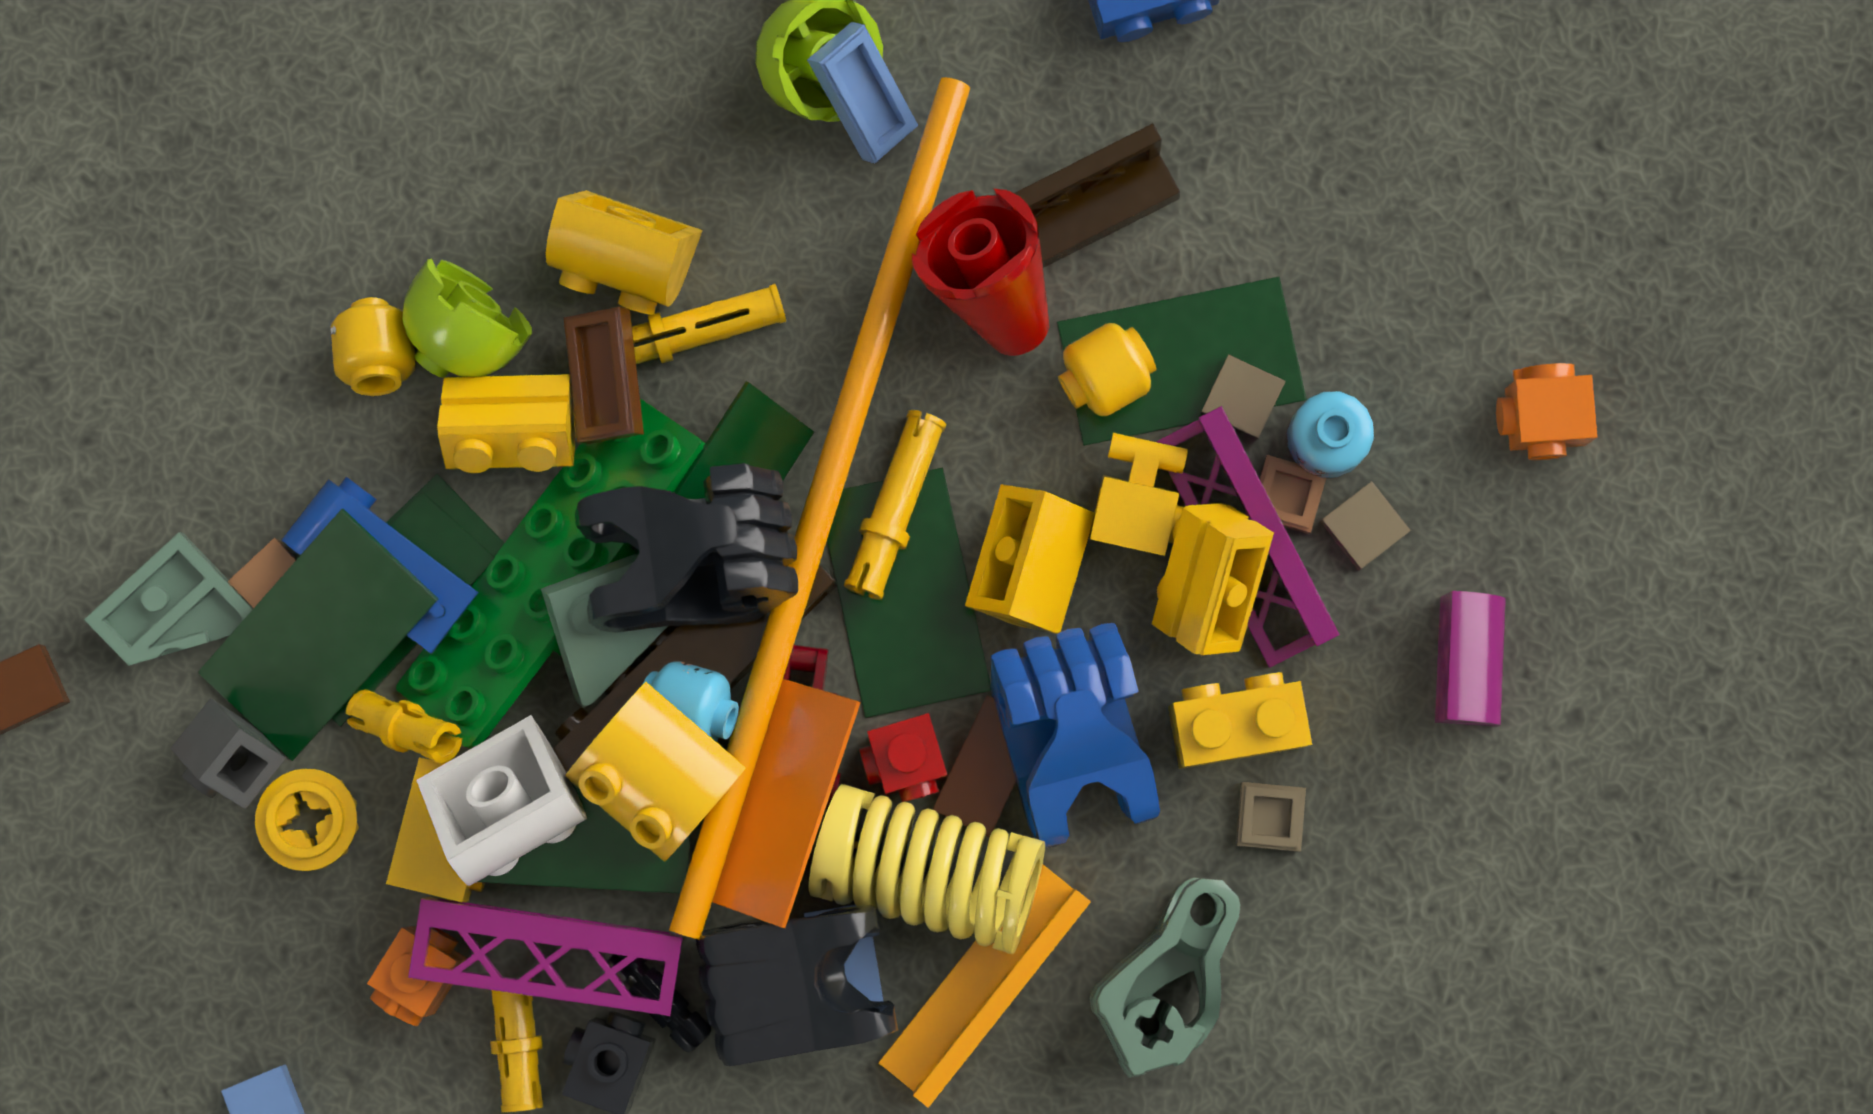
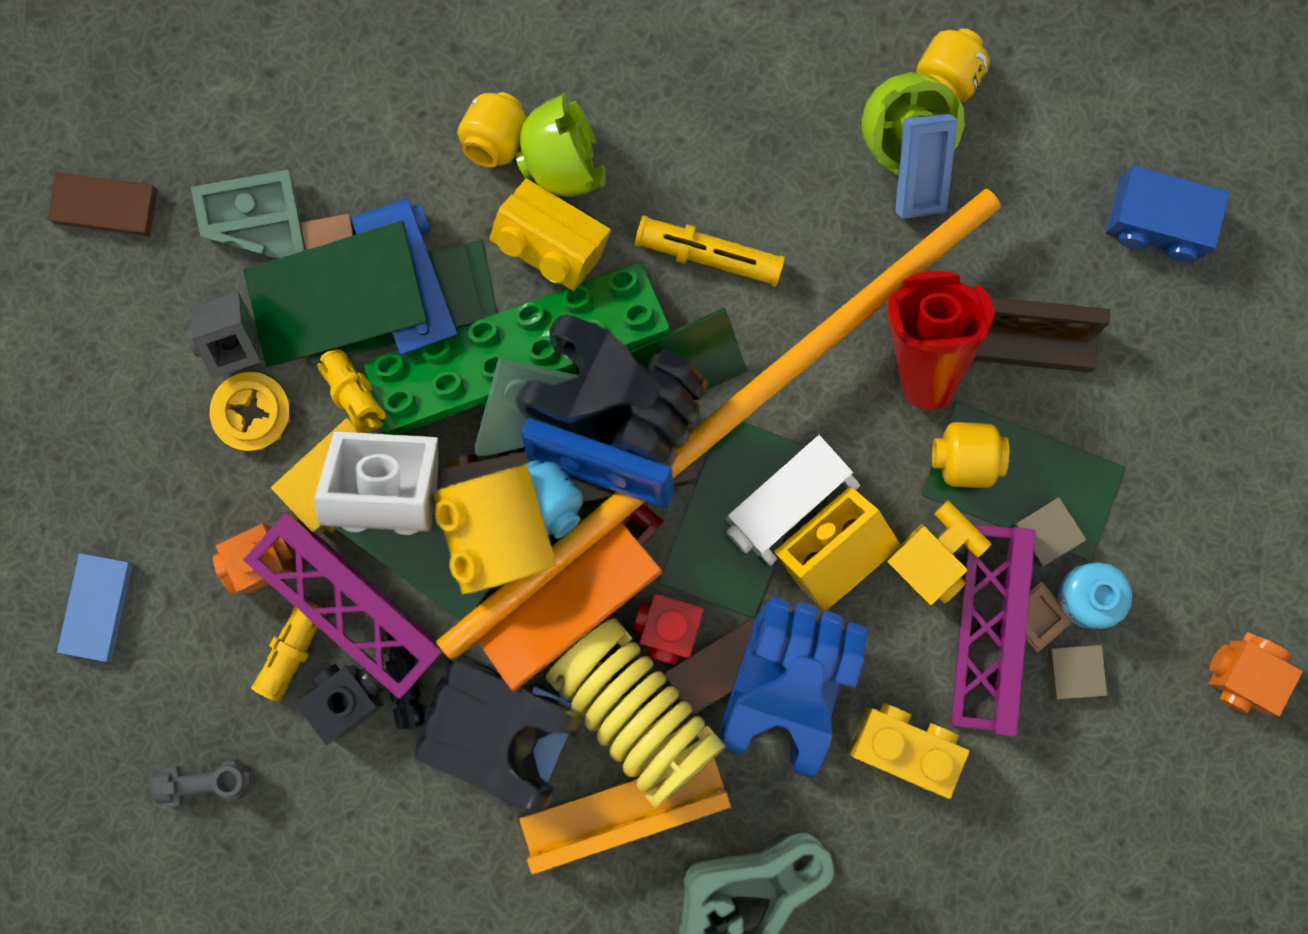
camera: 30 degrees right, 0 degrees up
(603, 375) = (632, 243): reddish brown tile -> none
(620, 248) = (696, 167): yellow brick -> none
(720, 631) = (599, 463): none -> blue tile
(886, 528) = (753, 466): yellow pin -> none
(943, 540) = (787, 498): none -> white brick
(1211, 578) = (953, 641): yellow brick -> none
(1270, 816) = (887, 826): dark tan tile -> none
(1470, 659) = (1092, 808): magenta brick -> none

